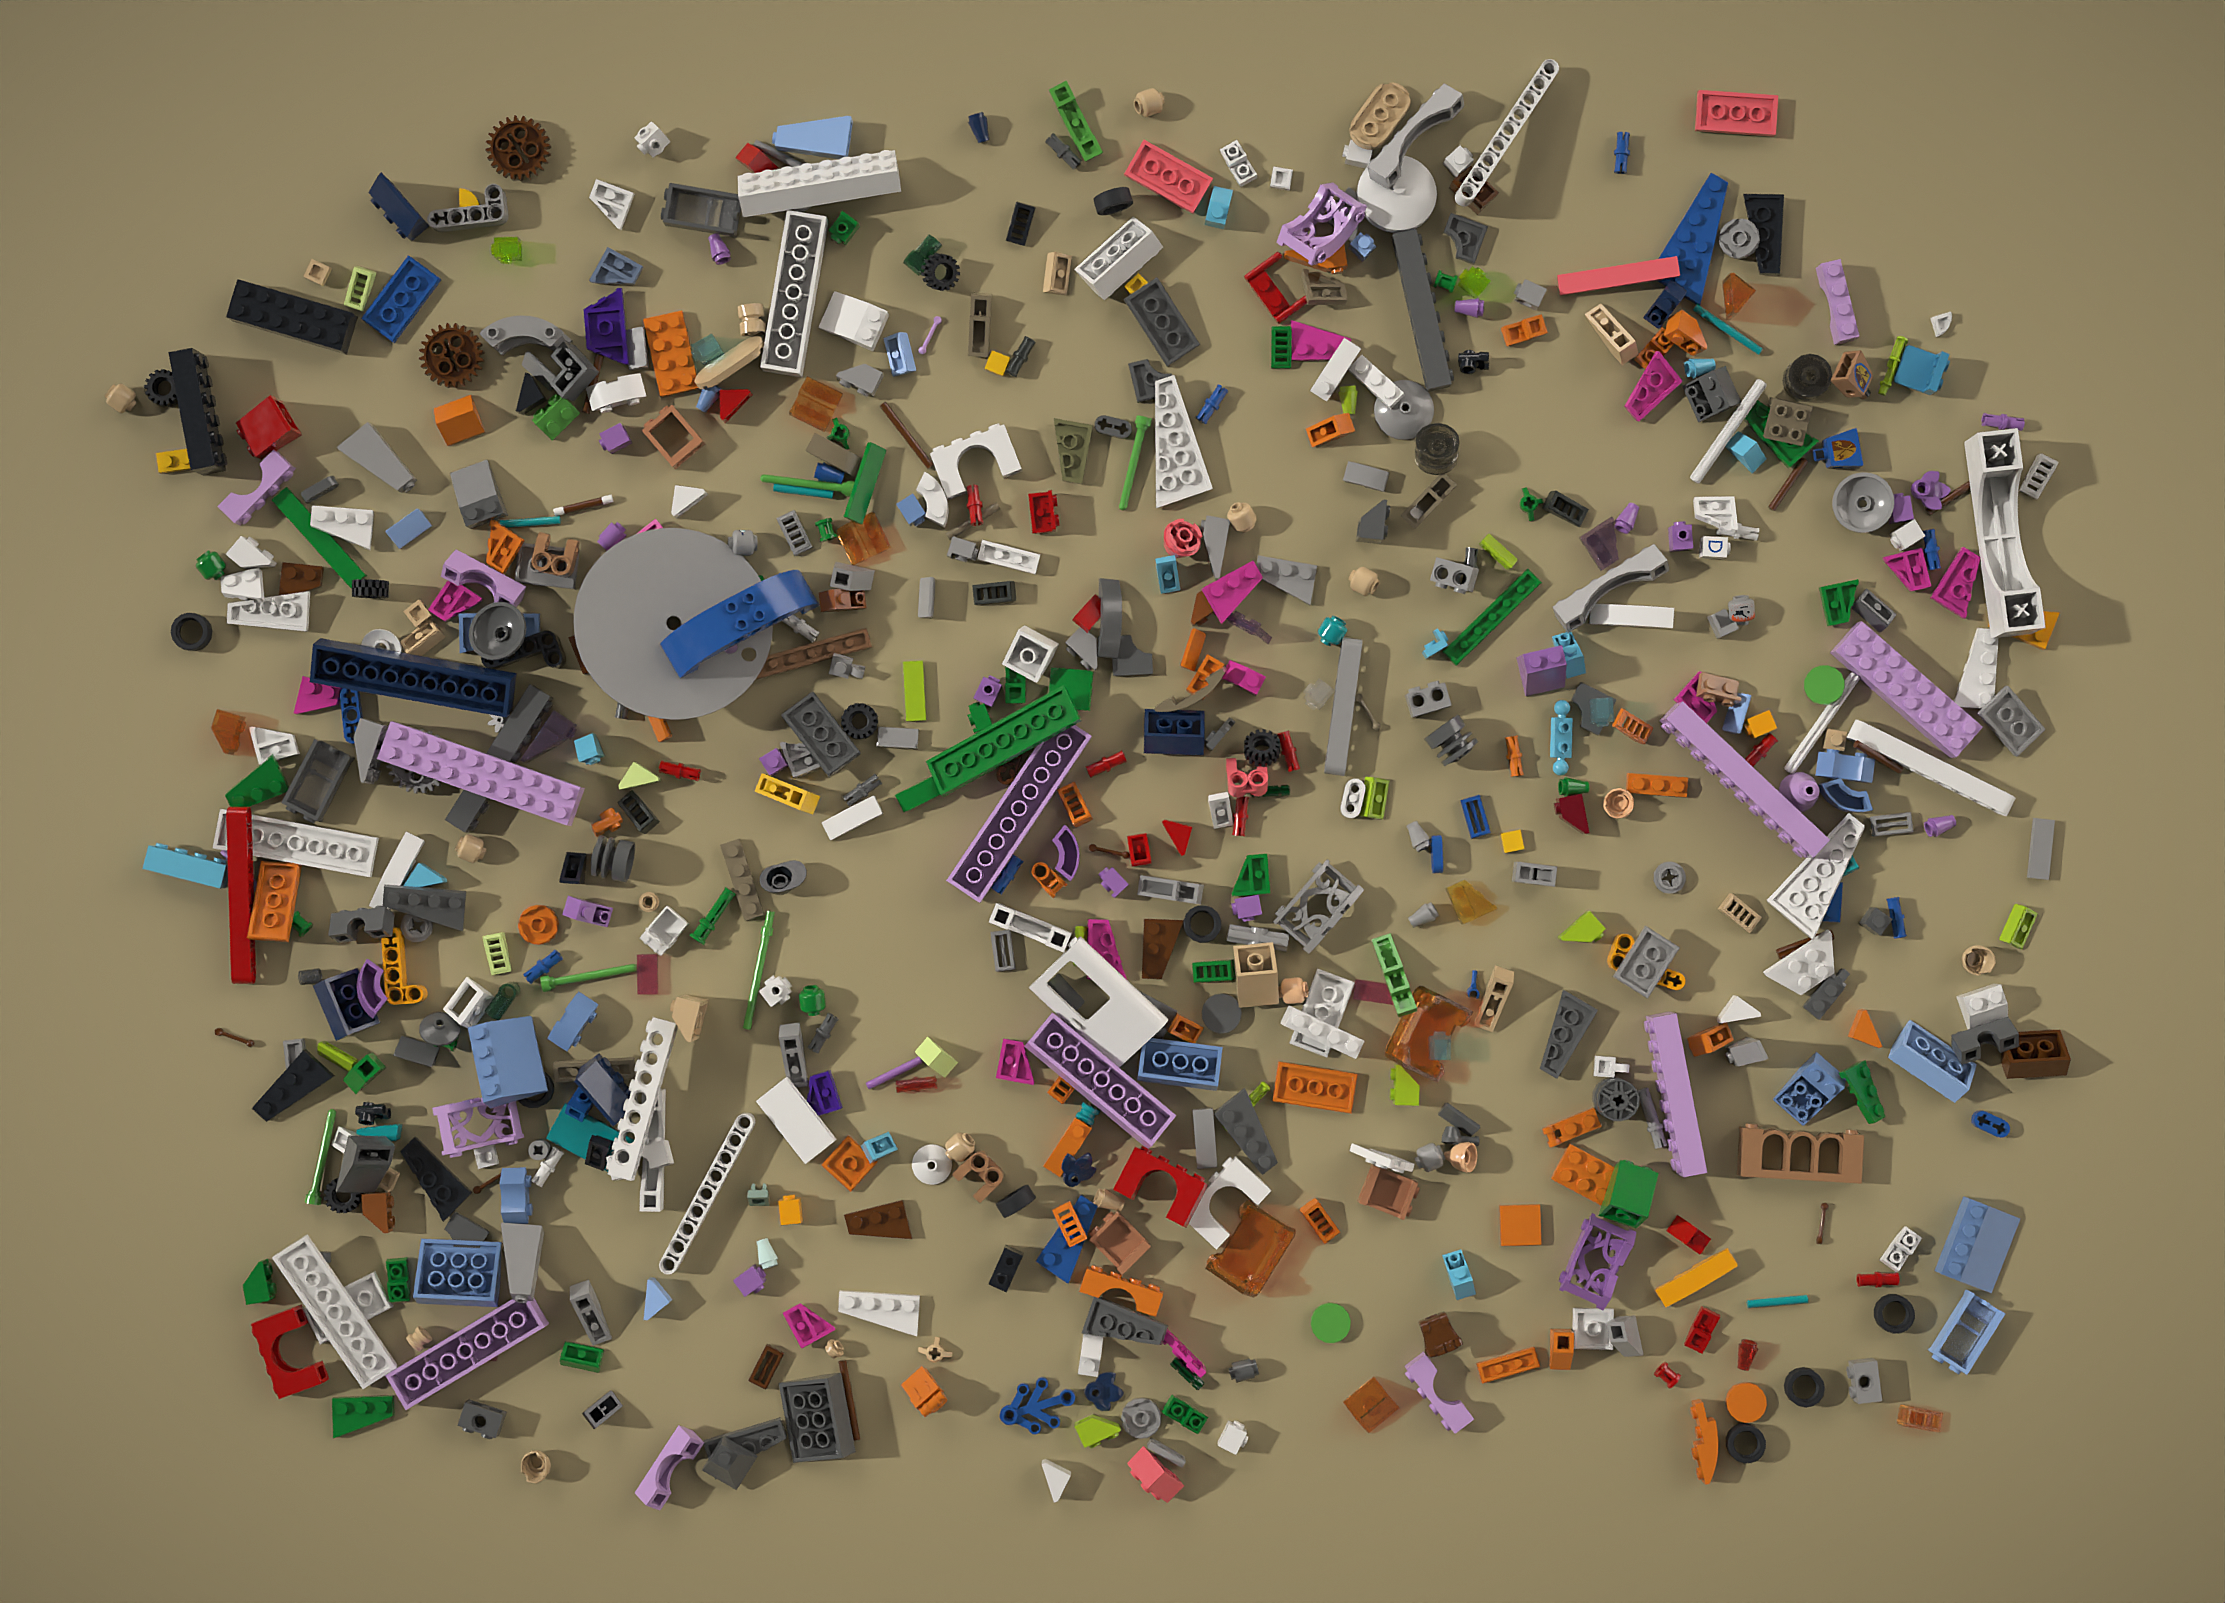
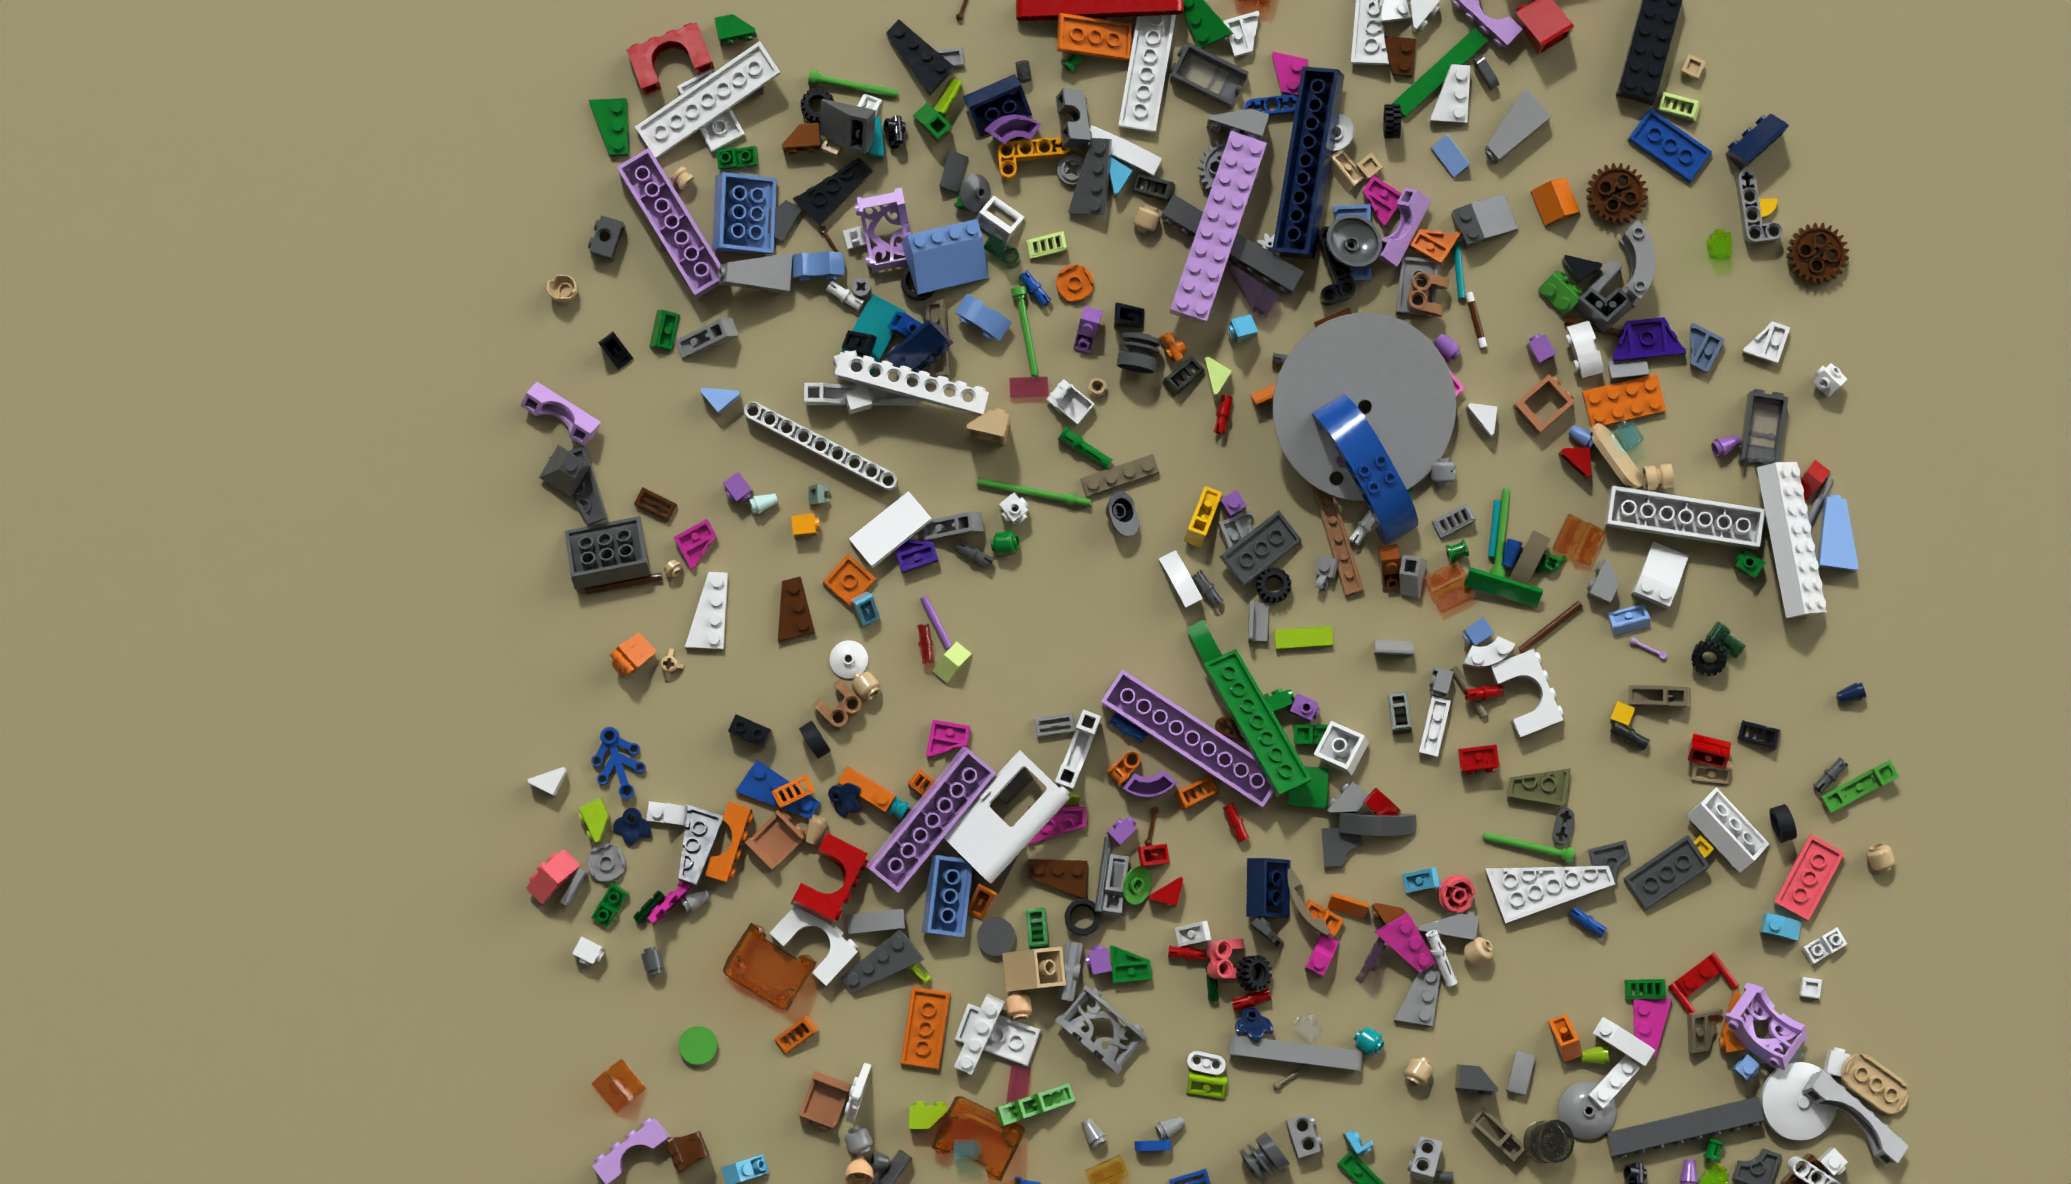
camera: 85 degrees right, 5 degrees down
(436, 822) = (1168, 193): none -> pearl dark grey slope
(1037, 274) = (1709, 751): none -> red brick
(1159, 902) = (1103, 874): none -> dark grey bar
(1170, 867) = (1137, 885): none -> bright green dish
(1181, 1326) = (694, 900): none -> light grey cone
(1241, 557) = (1439, 953): none -> white pin
(1317, 749) = (1253, 1026): none -> dark blue plate

